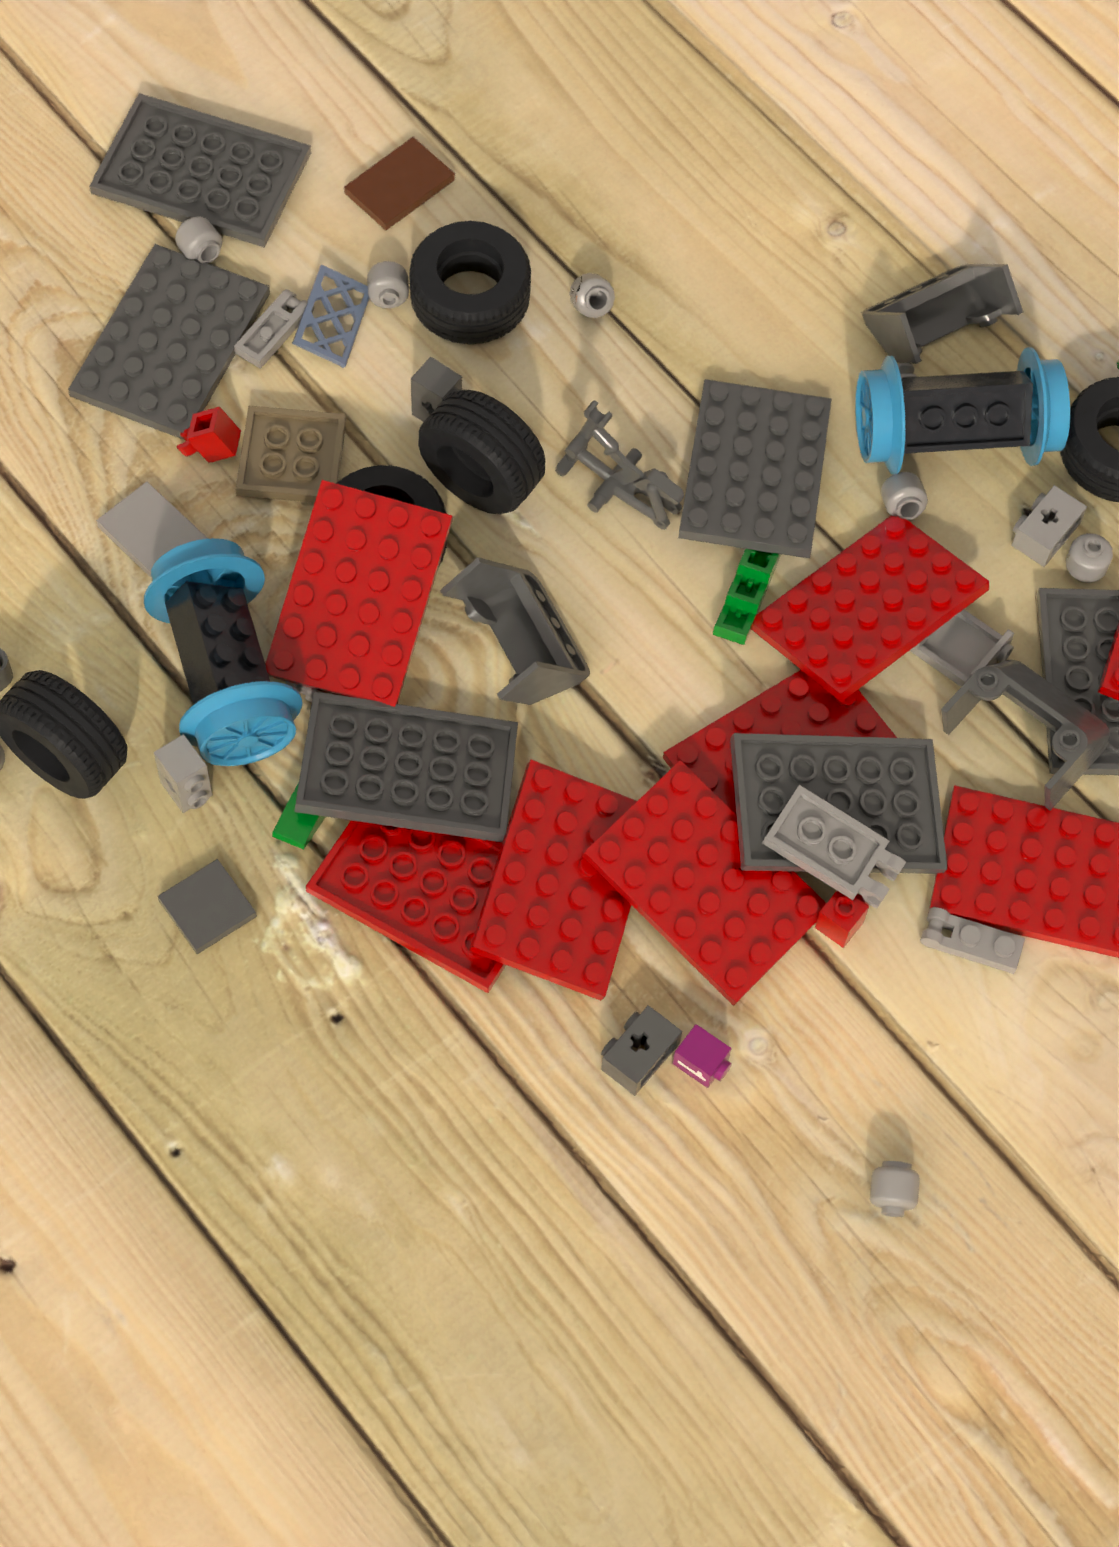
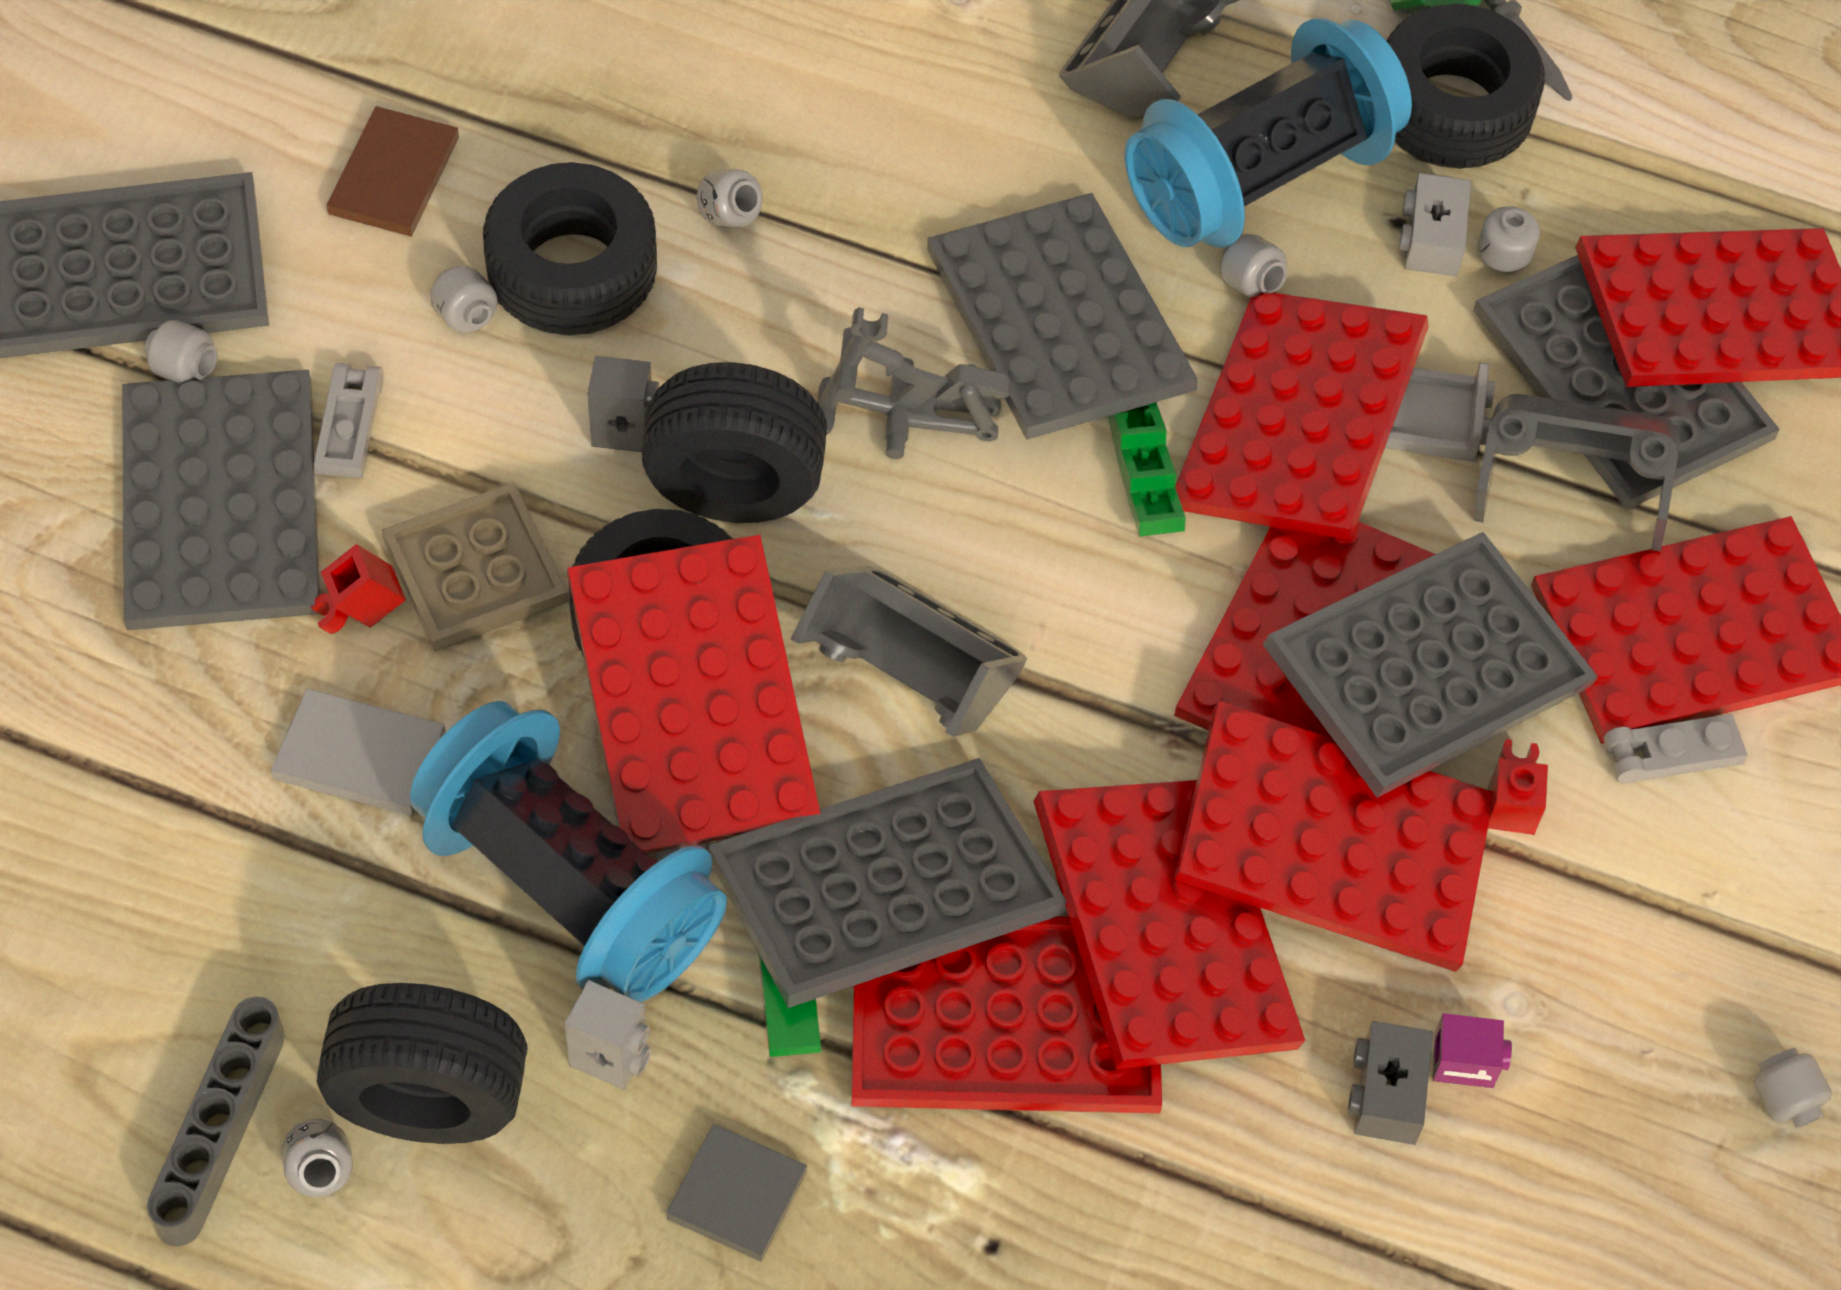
camera: 30 degrees left, 5 degrees down
(357, 311) = (405, 324): sand blue window -> none
(833, 847) = (1467, 713): light grey tile -> none

